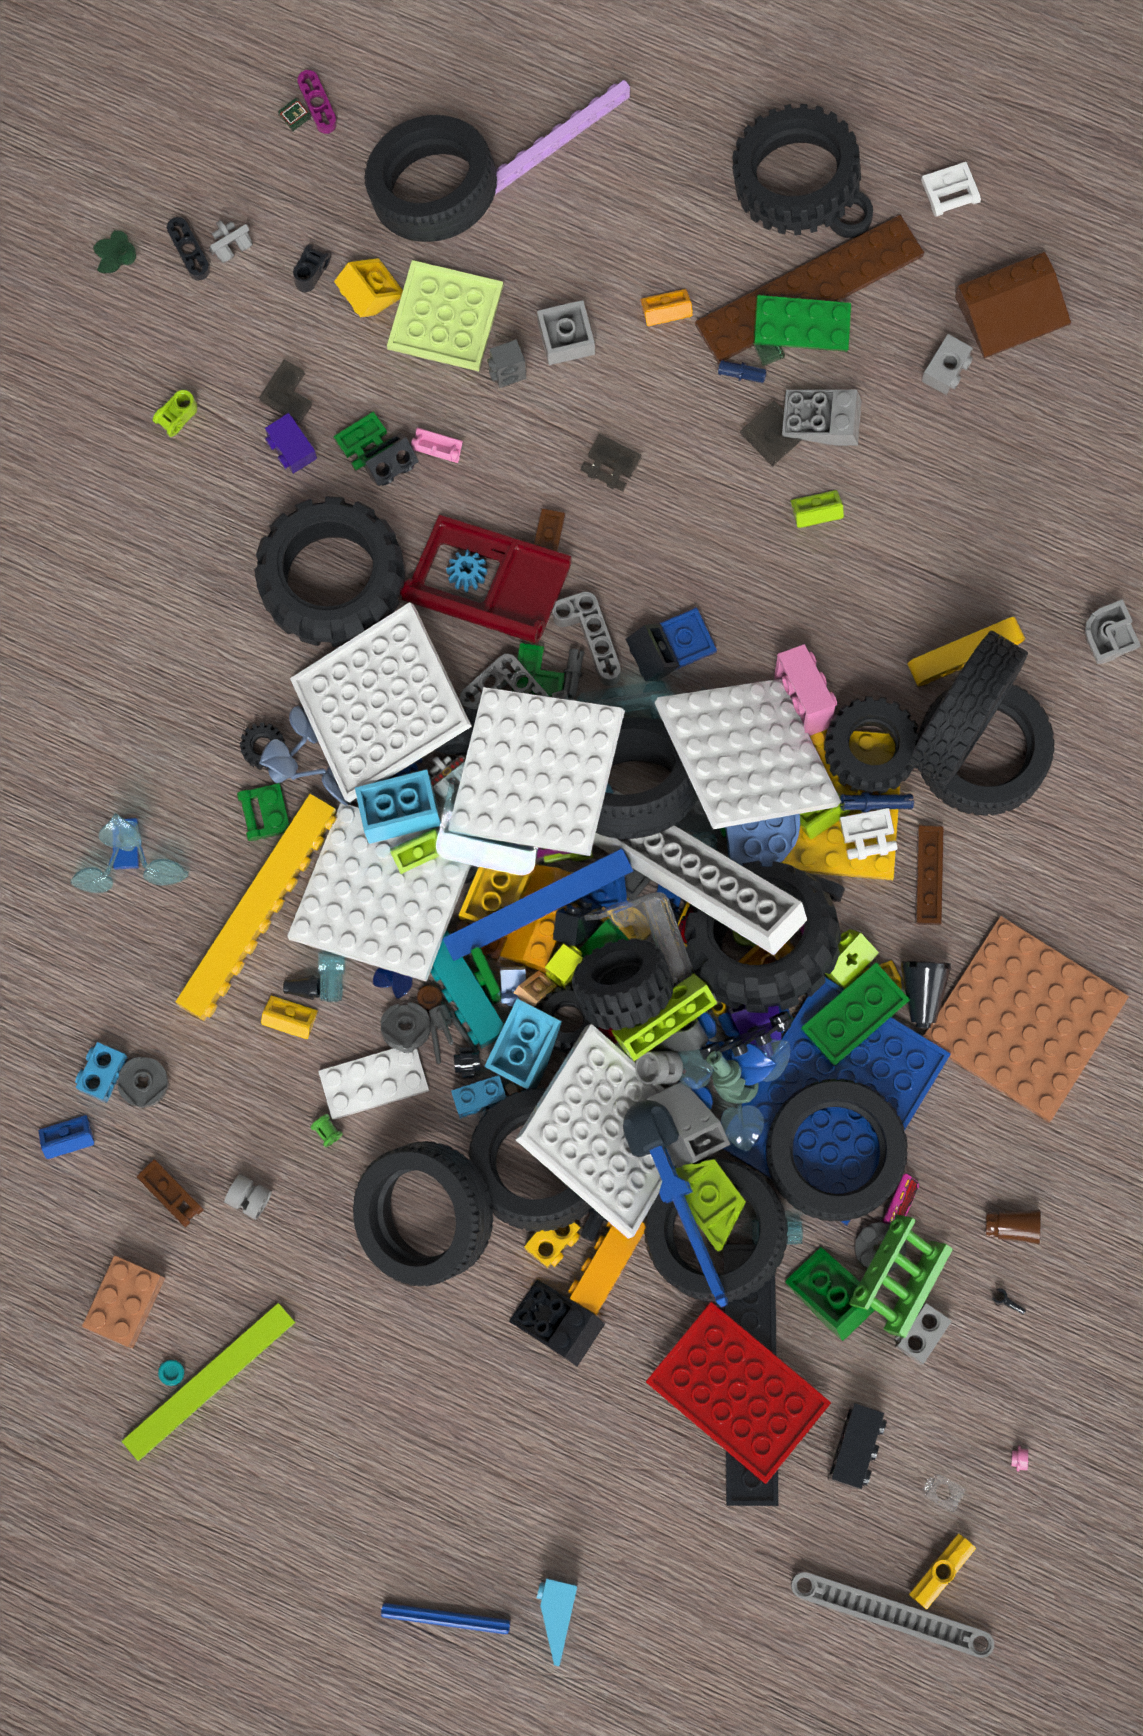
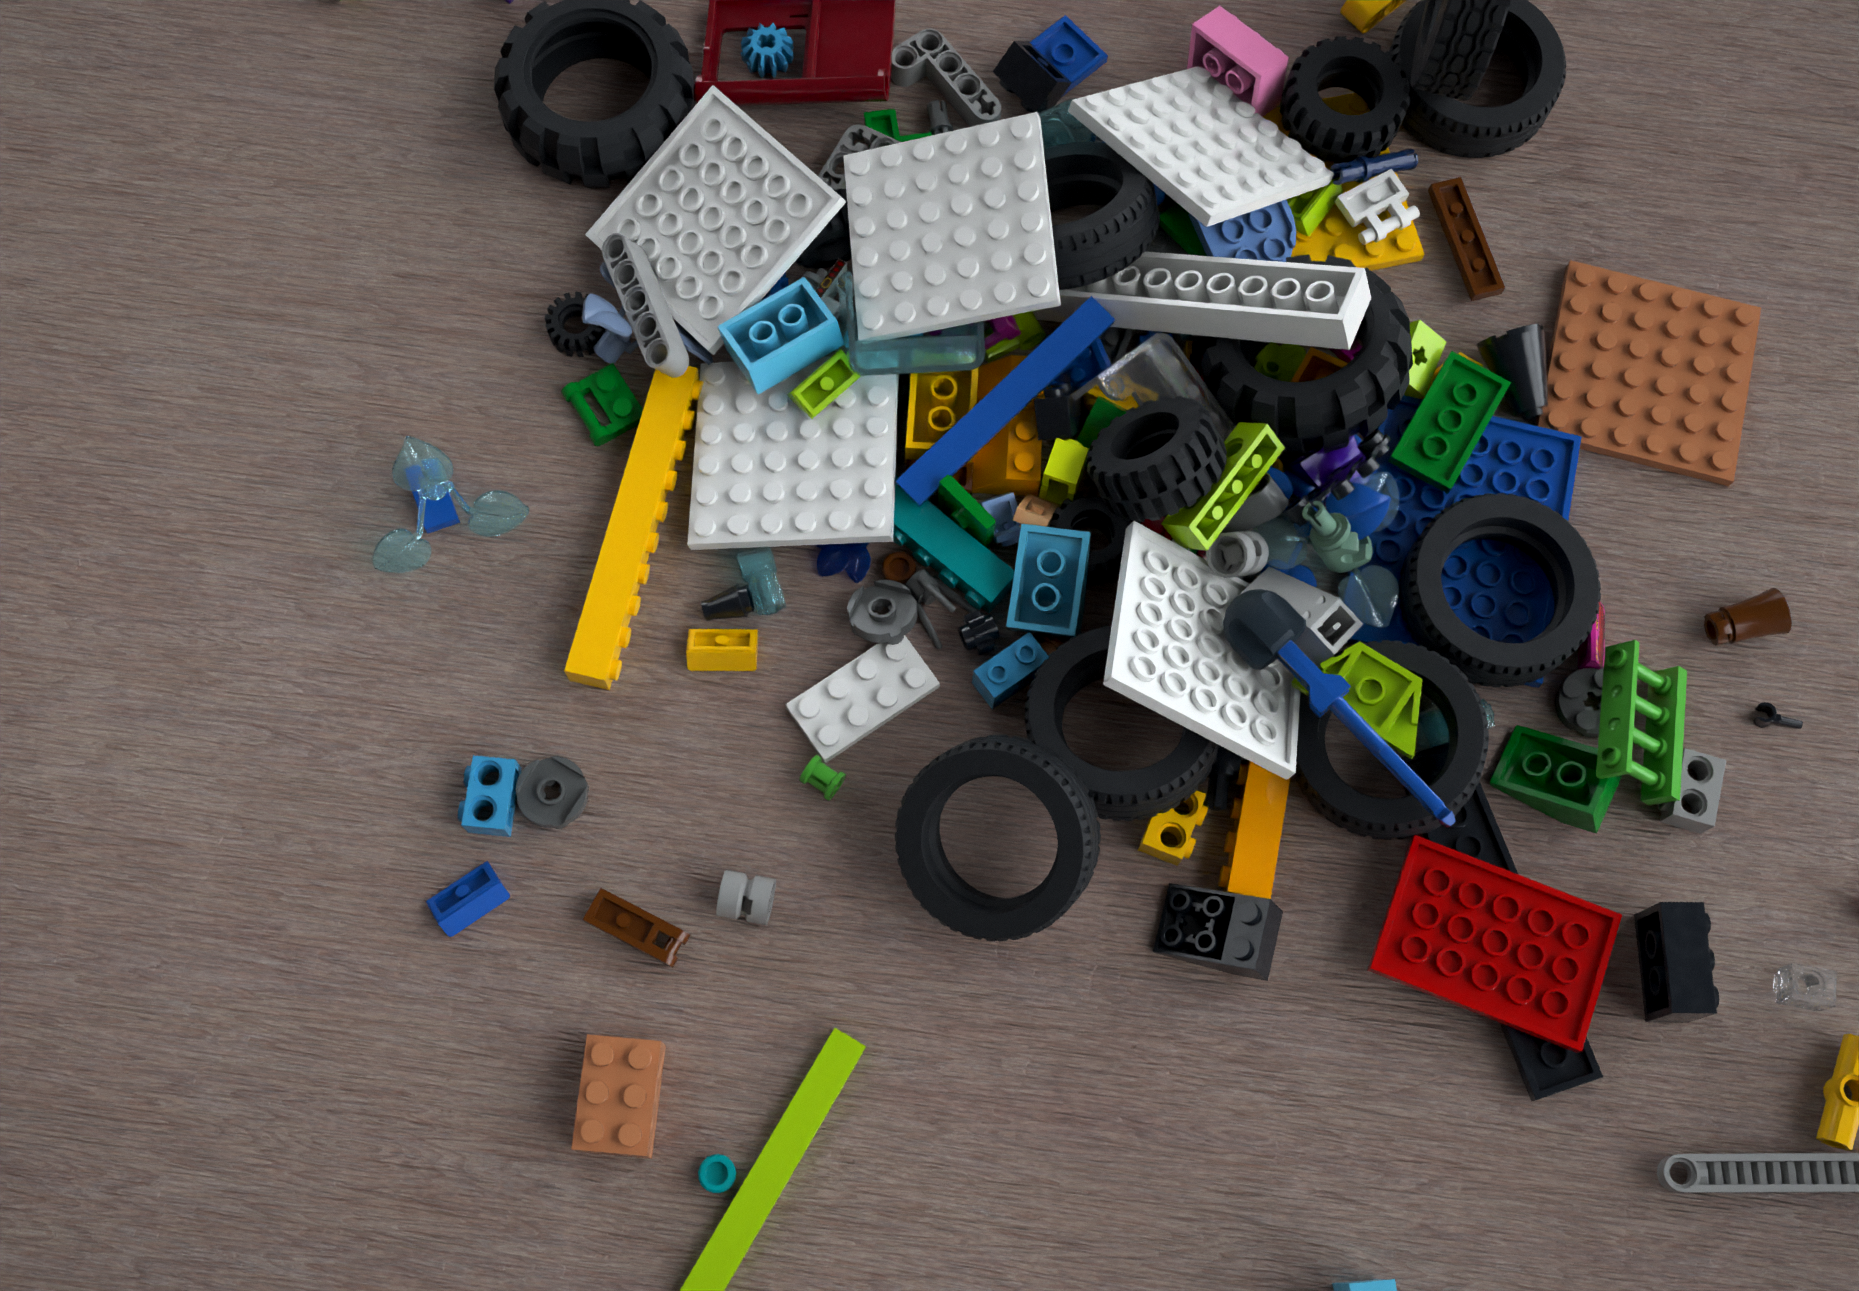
camera: 25 degrees left, 5 degrees down
(311, 753) = (645, 305): none -> light grey beam

